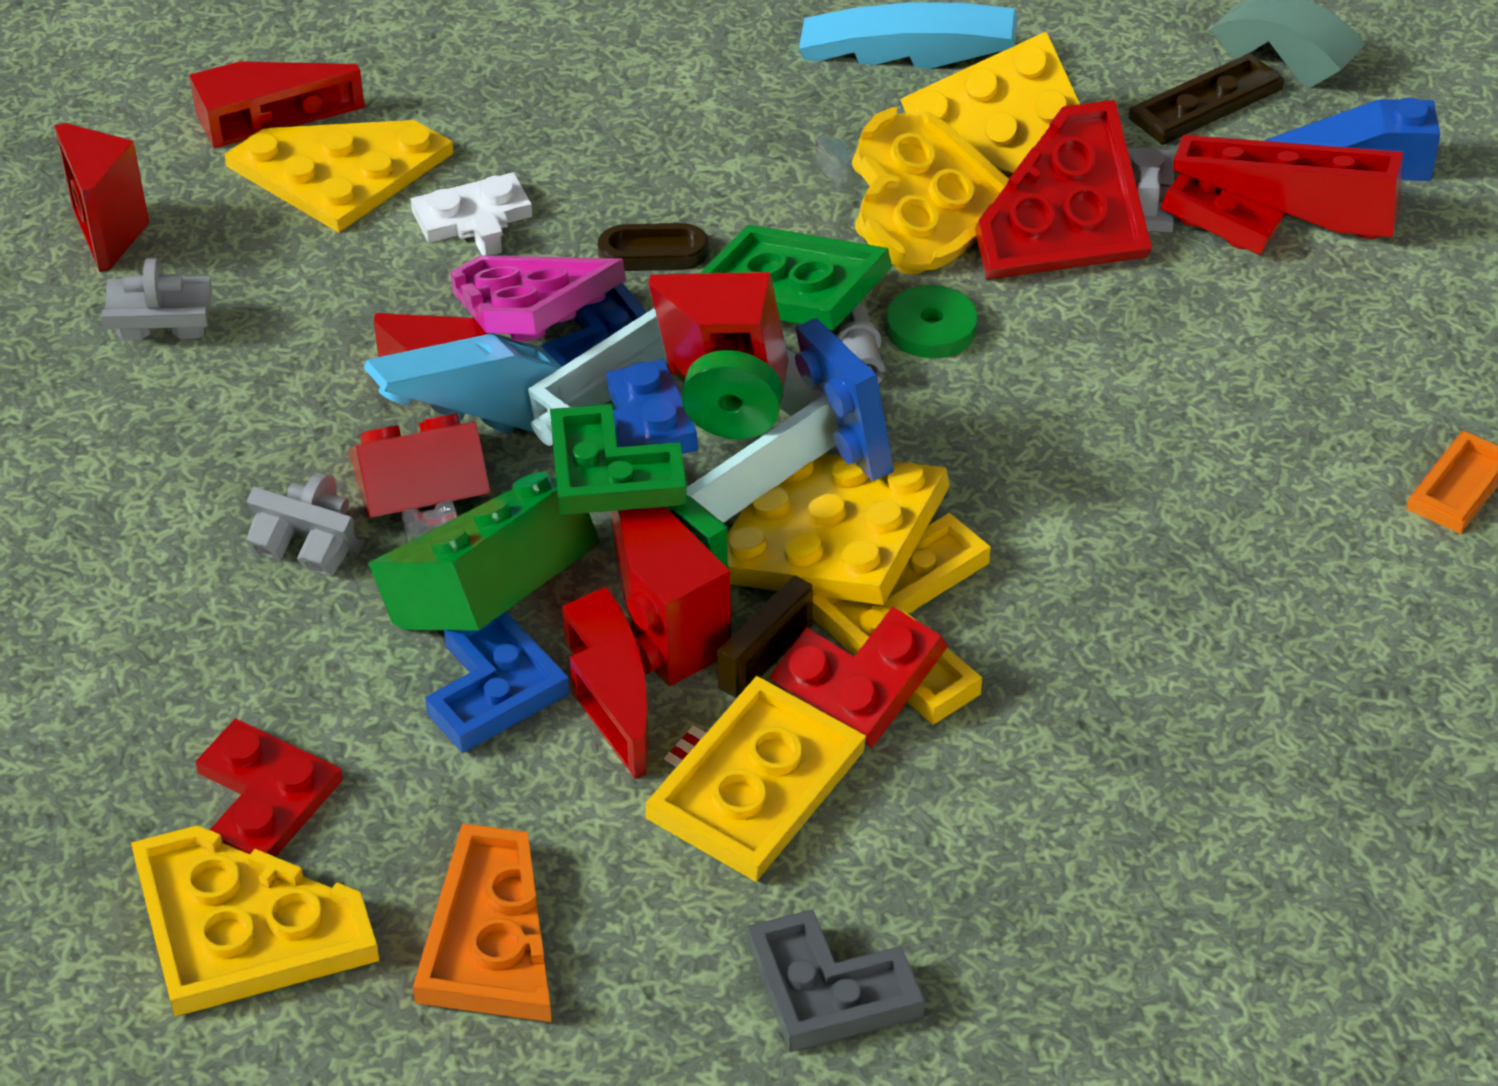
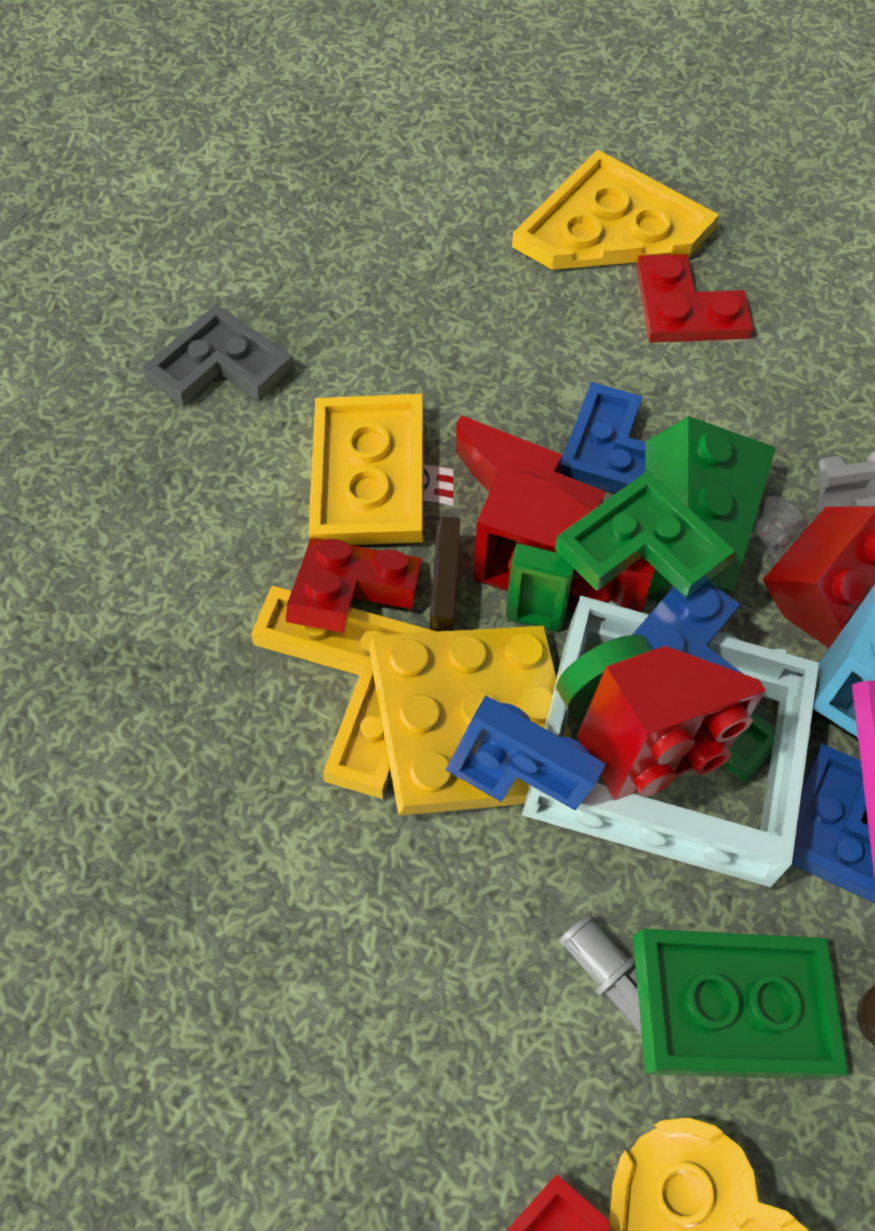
camera: 145 degrees right, 15 degrees up
(486, 931) = (461, 286): orange wing -> none
(948, 336) = (564, 1097): green piece -> none

